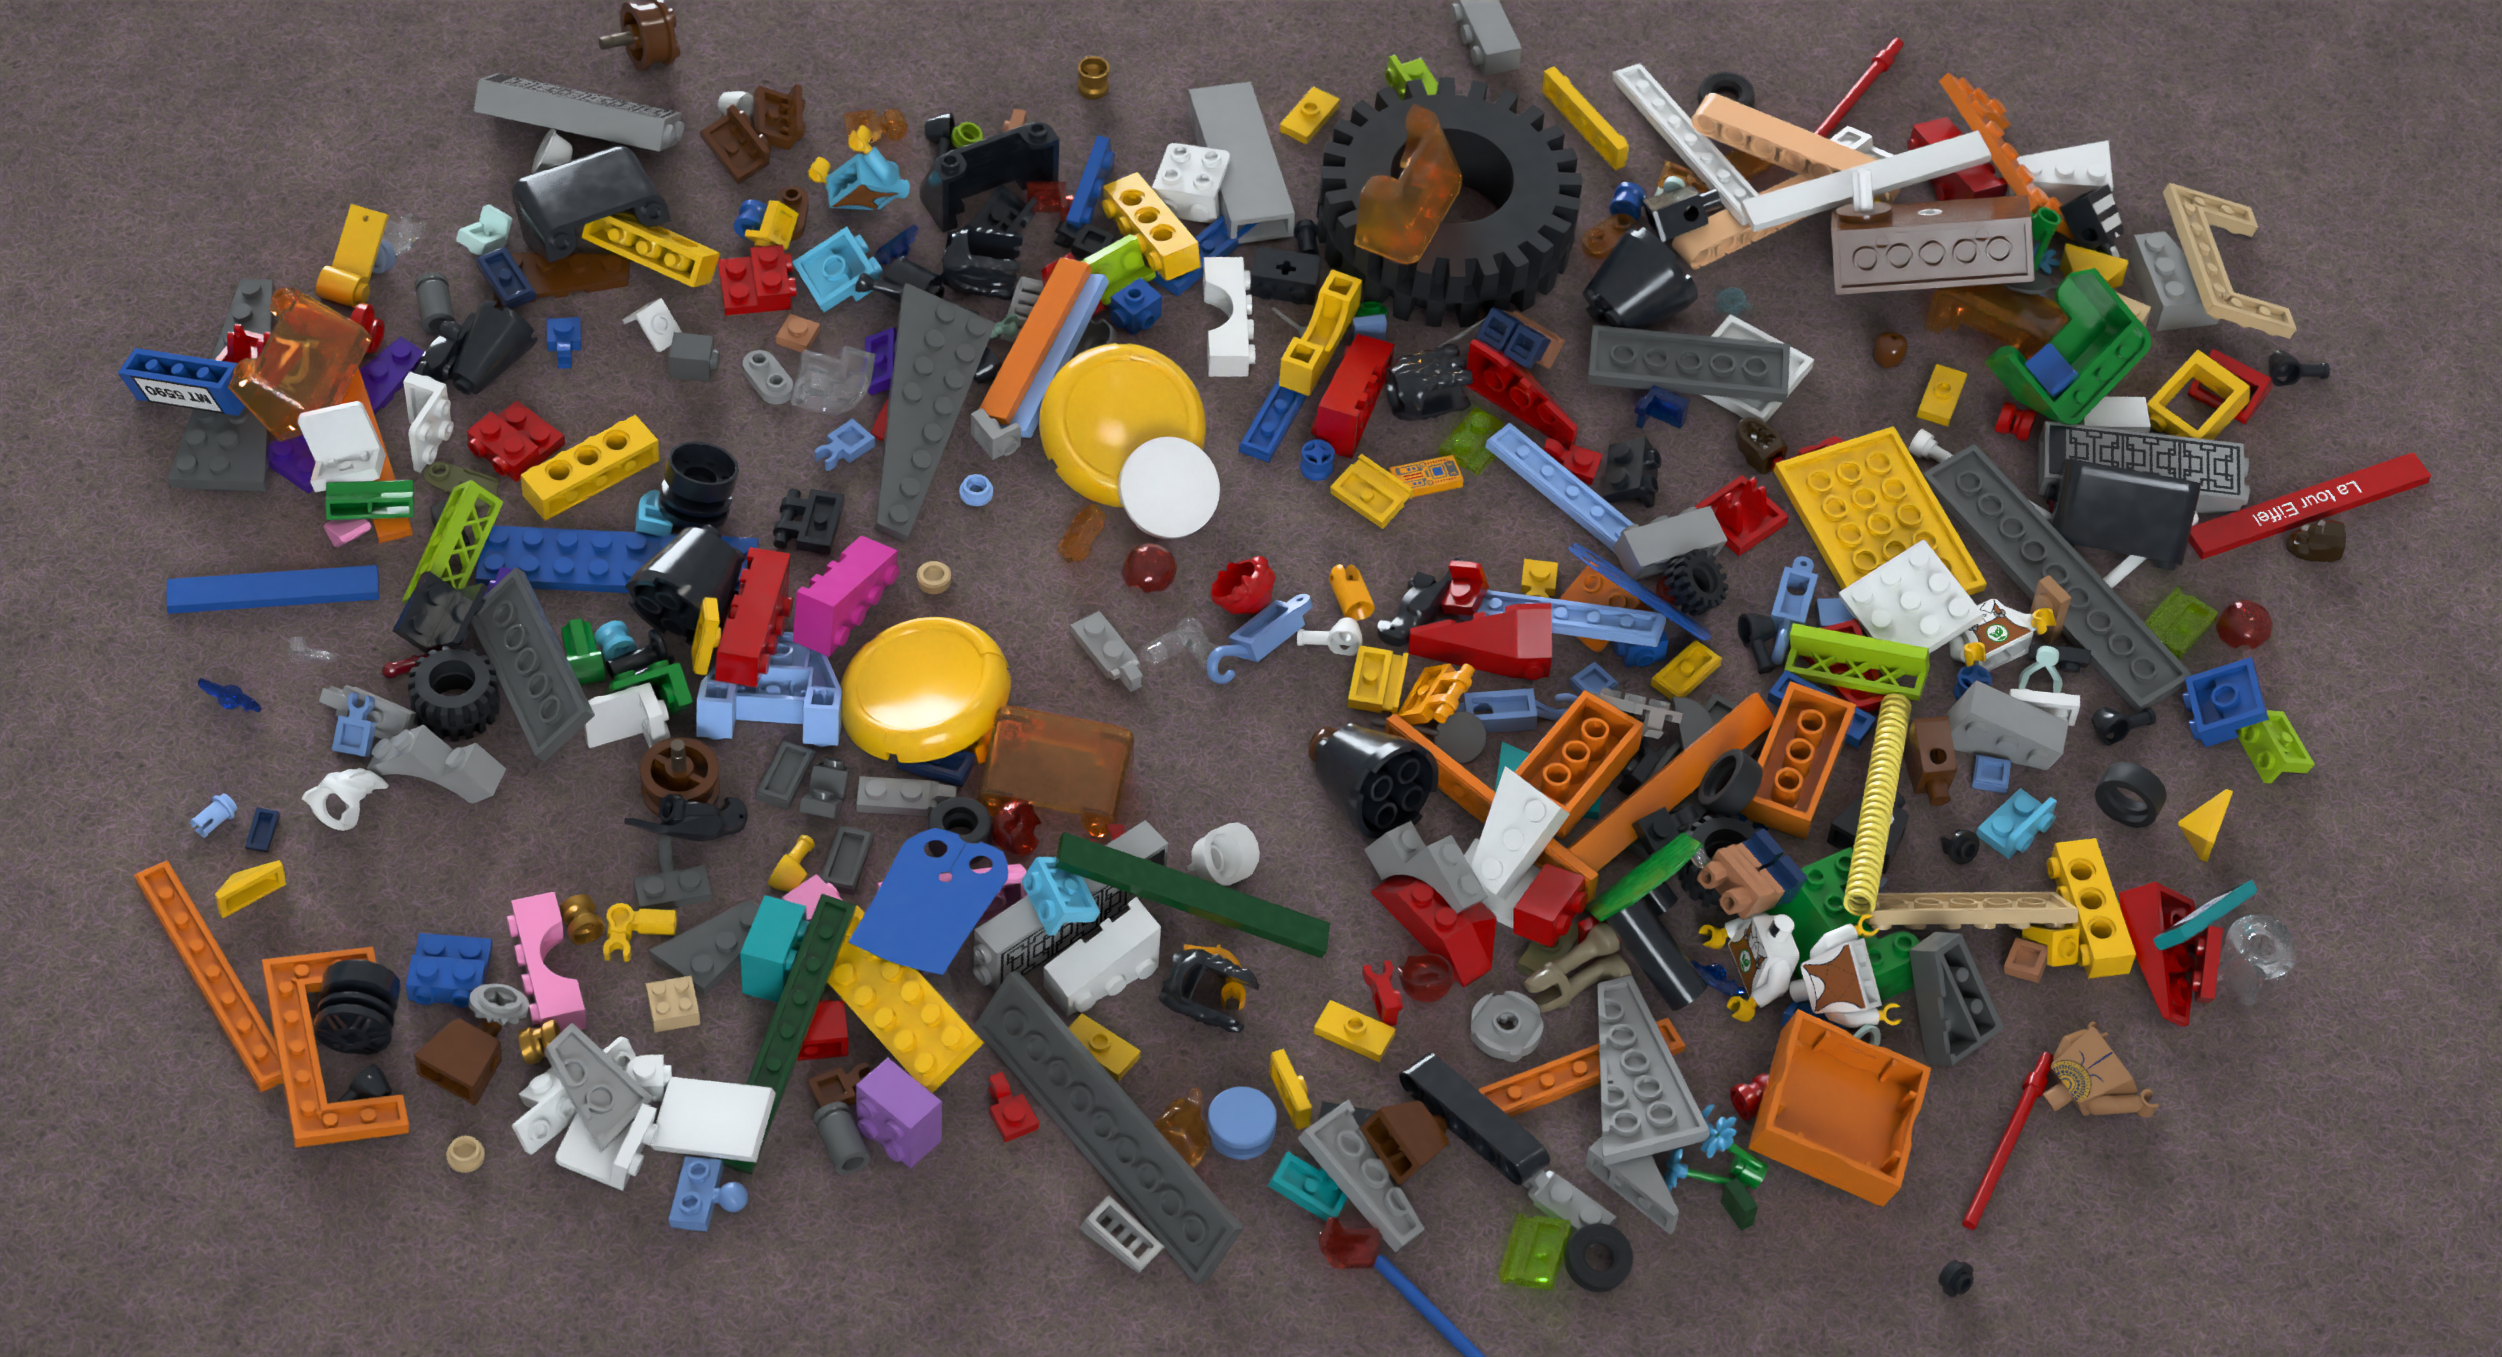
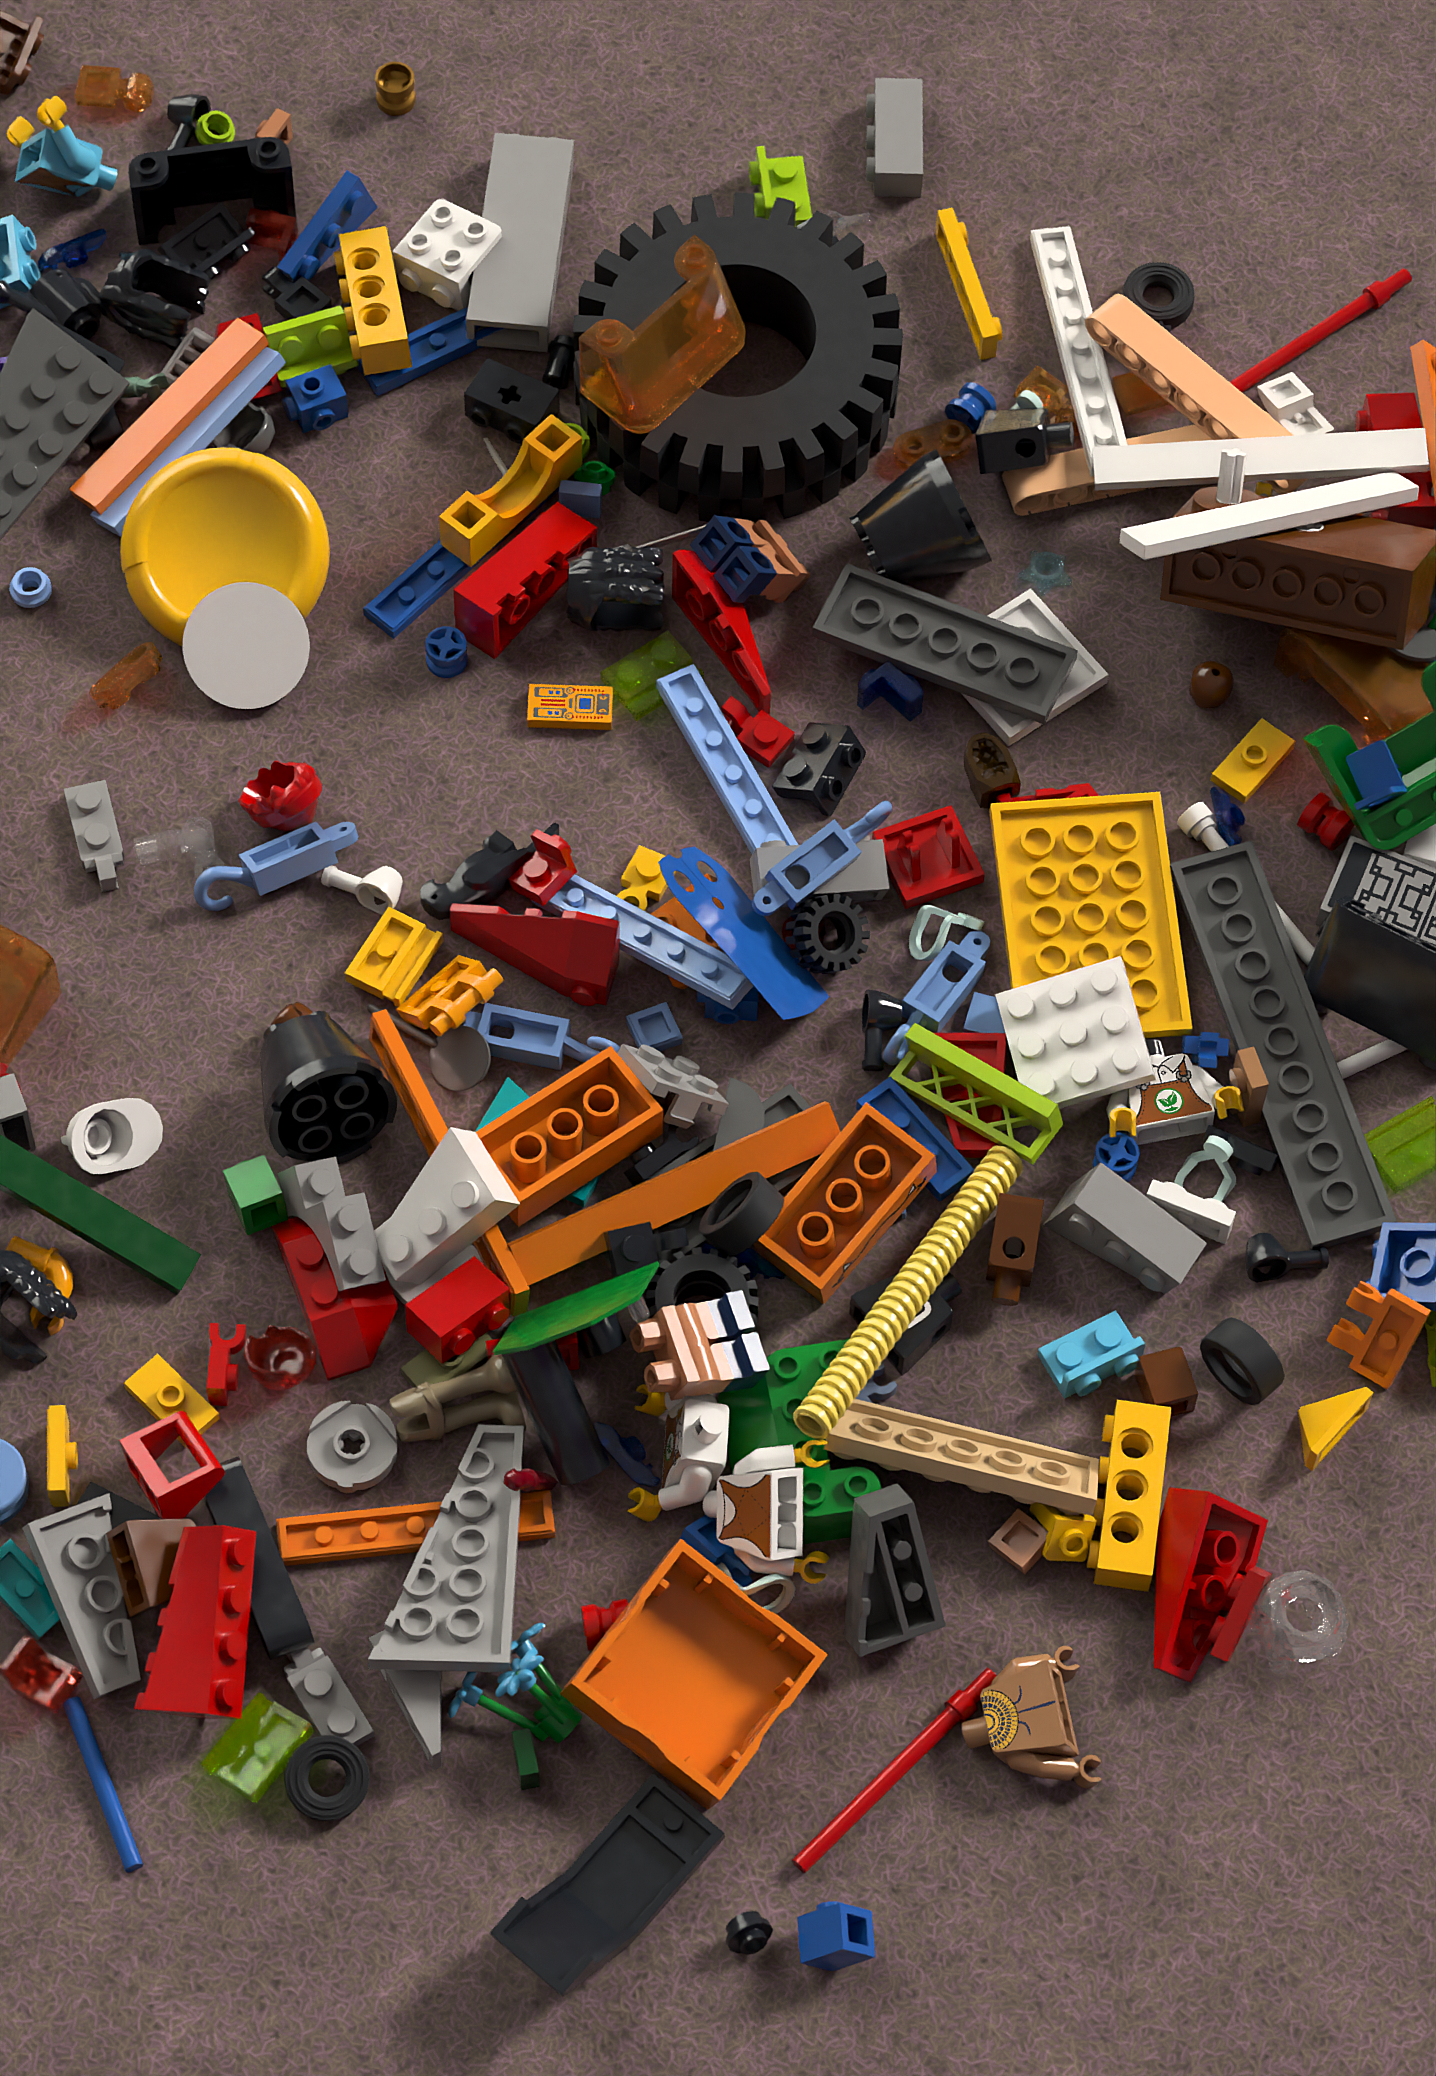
camera: 20 degrees right, 10 degrees up
(993, 438) = (81, 532): light grey bracket -> none
(1149, 568) = (189, 740): clear red hair -> none
(1229, 344) = (404, 478): white arch -> none
(1309, 115) = (637, 197): yellow plate -> none
(1351, 592) = (409, 839): light orange piece -> none
(1354, 869) = (255, 1194): none -> brick
(1371, 491) = (492, 710): yellow plate -> none
(1375, 1085) = (149, 1443): none -> red tile
(1468, 1169) = (204, 1627): none -> red wedge
(1656, 1007) = (528, 1480): none -> dark red piece
(1675, 526) = (822, 857): none -> medium blue piece
(1686, 671) = (770, 1046): yellow plate -> none
(1755, 563) = (921, 921): none -> light aqua piece
(1846, 1268) = (610, 1888): none -> black windscreen
(1902, 209) = (1268, 515): none -> white tile
(1942, 435) = (1228, 816): none -> clear blue piece
(1961, 847) = (1008, 1368): black plate -> none
(1991, 774) = (1090, 1280): medium blue tile -> none
(2007, 592) = (1205, 1048): none -> blue plate
(2023, 1260) = (835, 1936): none -> blue brick
(2080, 821) = (1167, 1380): none -> reddish brown panel
(2205, 915) = (1260, 1550): teal tile -> none
(2226, 751) = (1389, 1337): none -> orange plate

